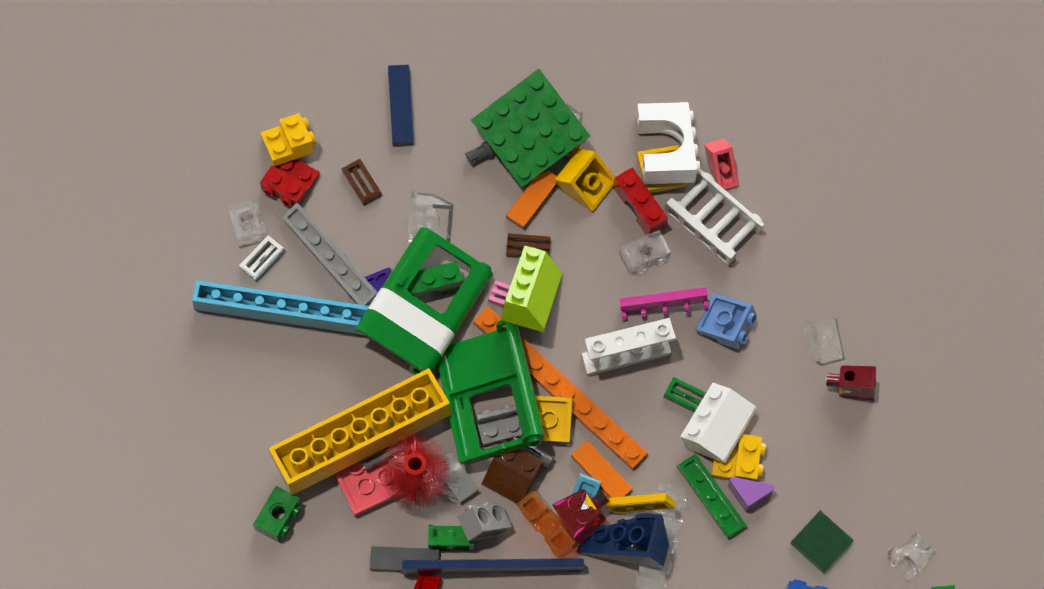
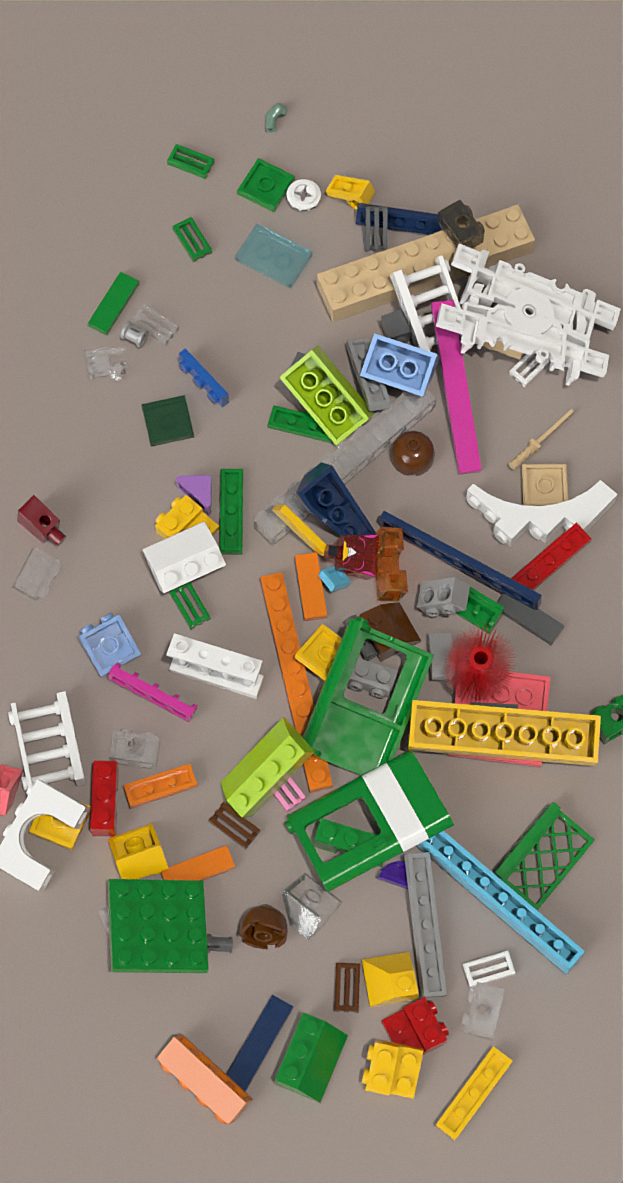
camera: 140 degrees left, 0 degrees up
(217, 161) = (474, 1093): none -> yellow plate
(289, 371) = (527, 843): none -> green fence
(331, 205) = (390, 979): none -> yellow slope
(354, 114) = (311, 1058): none -> green slope
(422, 53) = (204, 1079): none -> brick
(453, 182) = (264, 927): none -> reddish brown cylinder
(605, 239) = (160, 786): none -> orange plate

